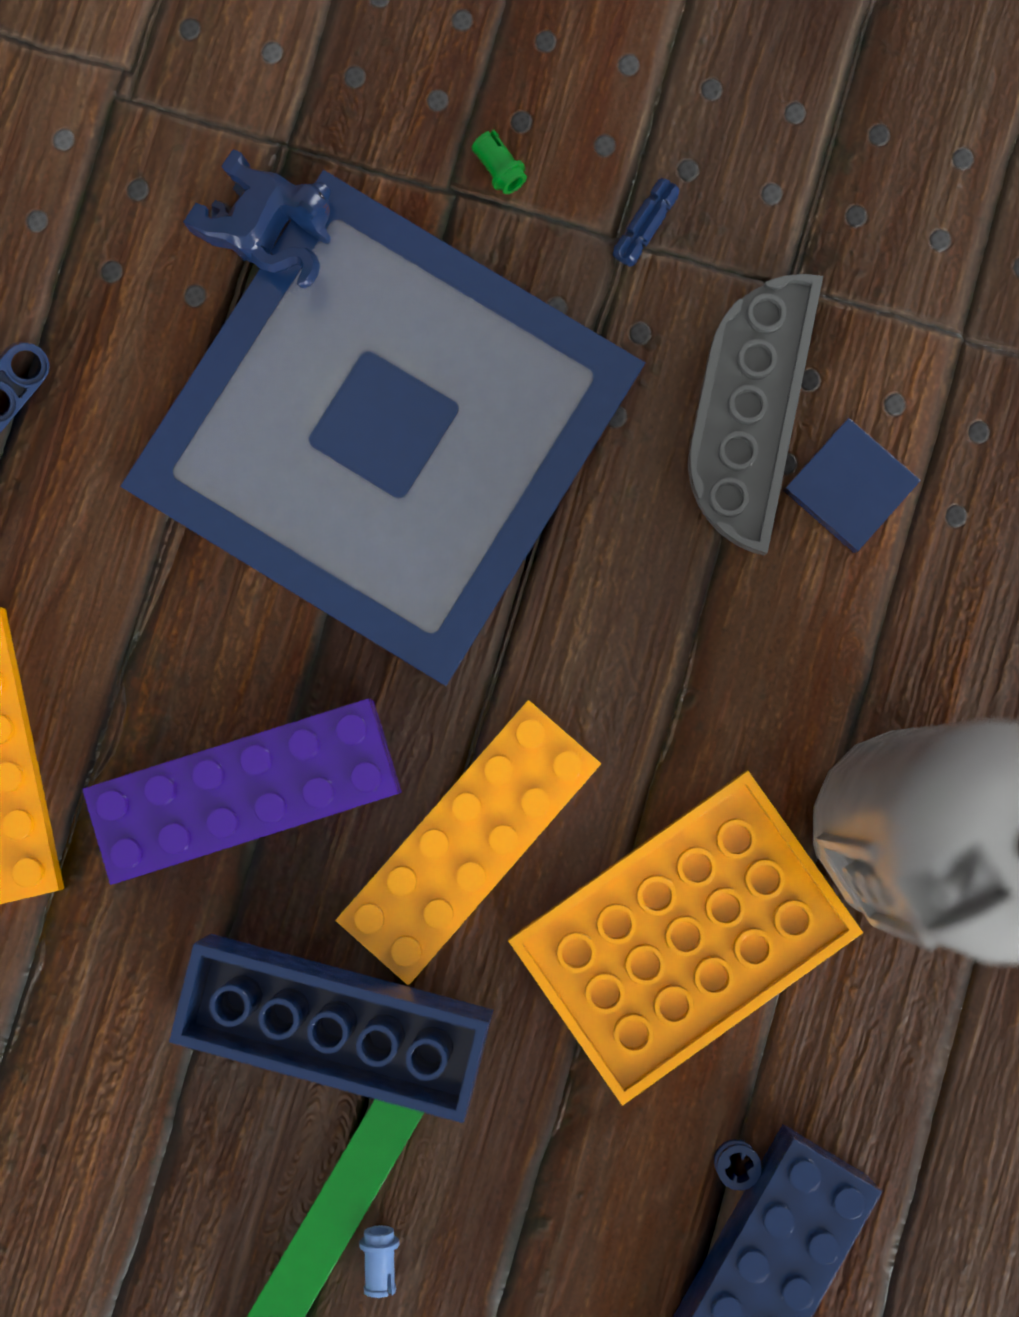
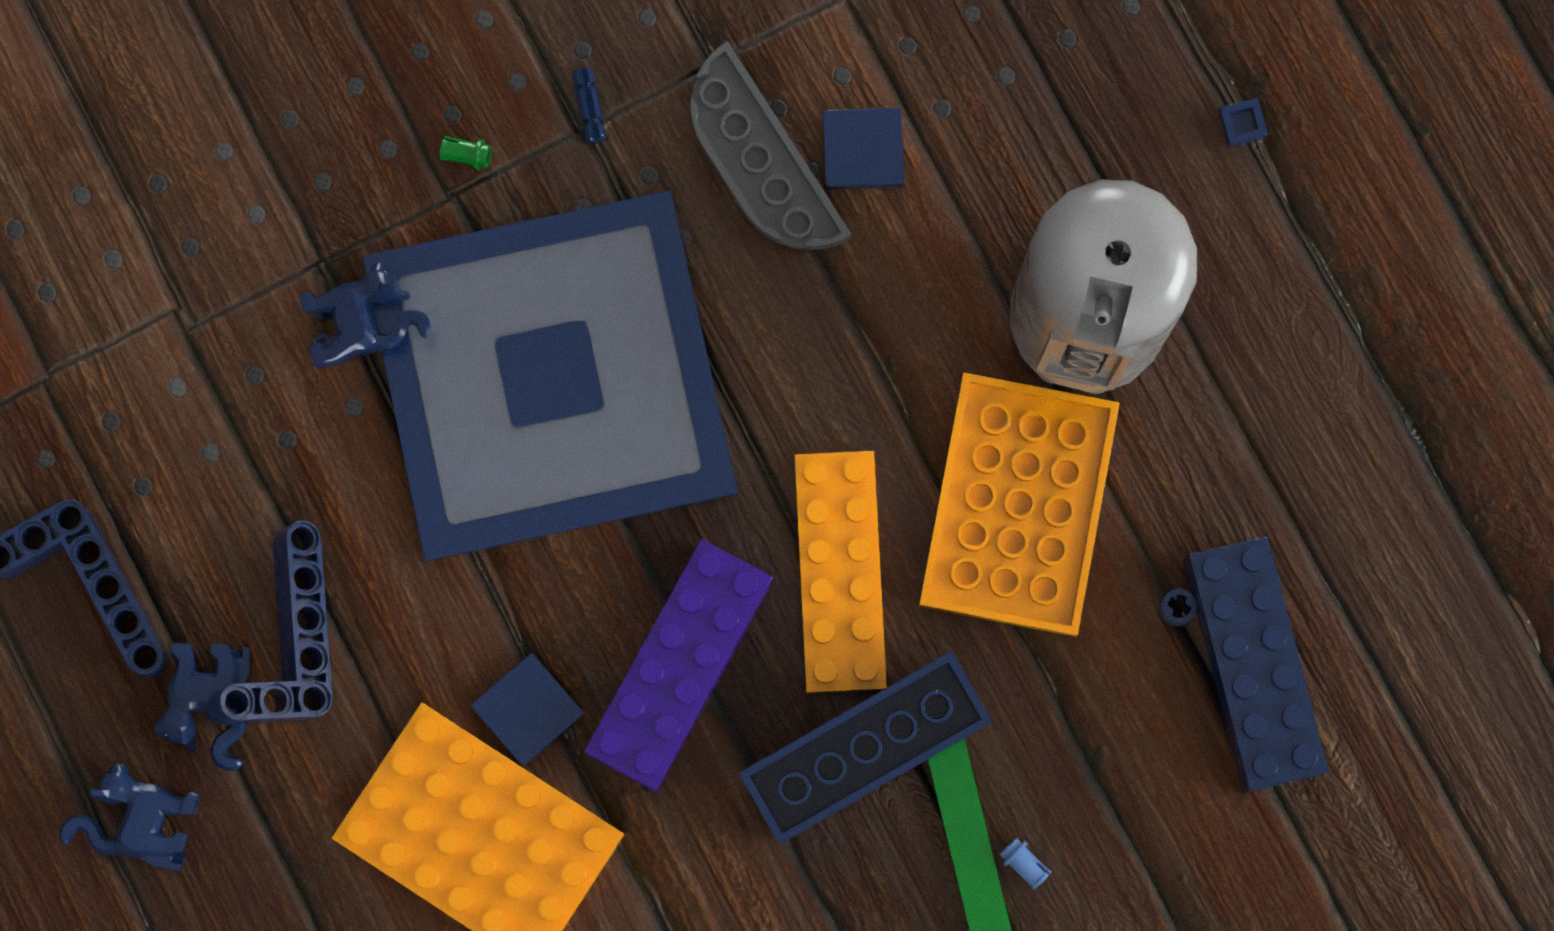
camera: 45 degrees left, 5 degrees down
(83, 700) = (527, 709): none -> dark blue tile

